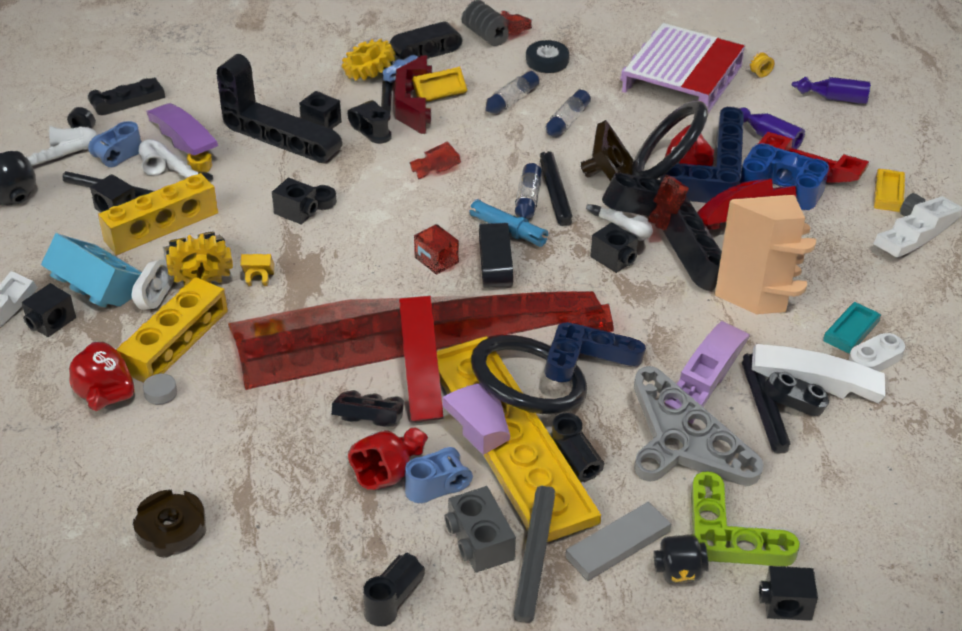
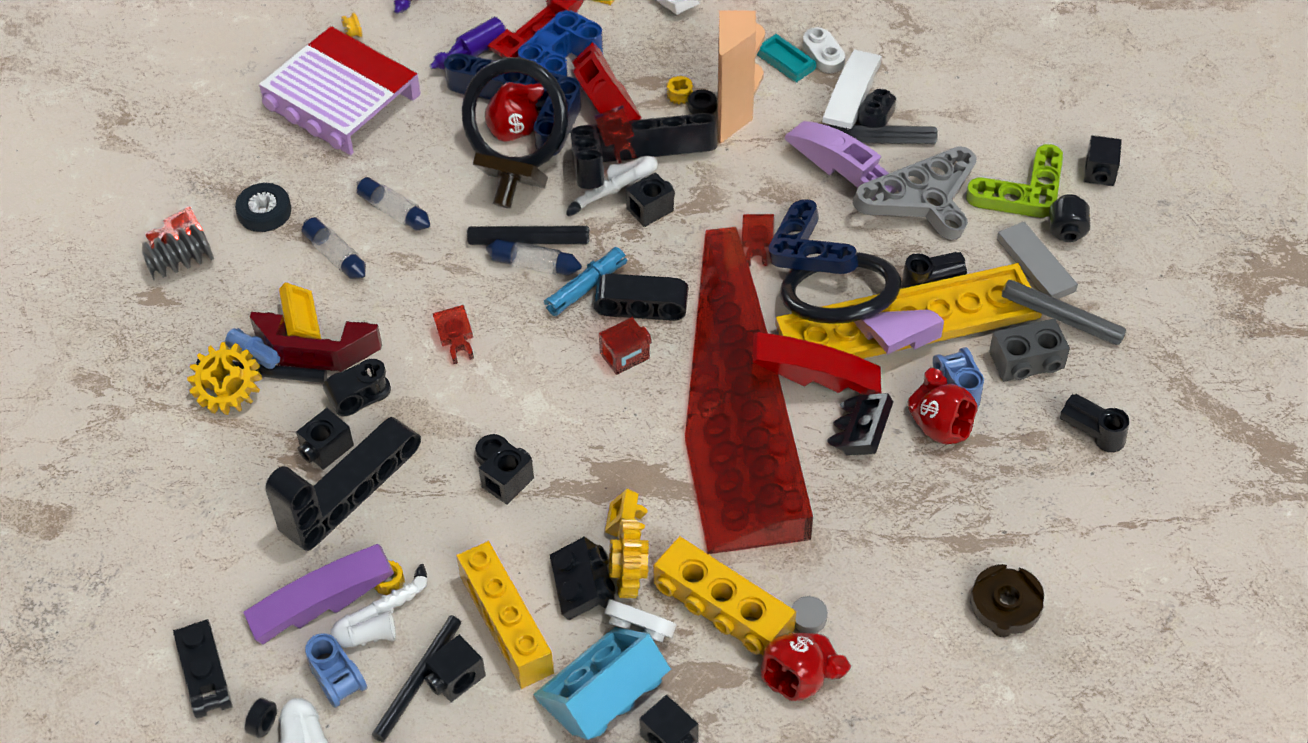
camera: 80 degrees left, 10 degrees up
(428, 40) = (195, 317): black beam -> none

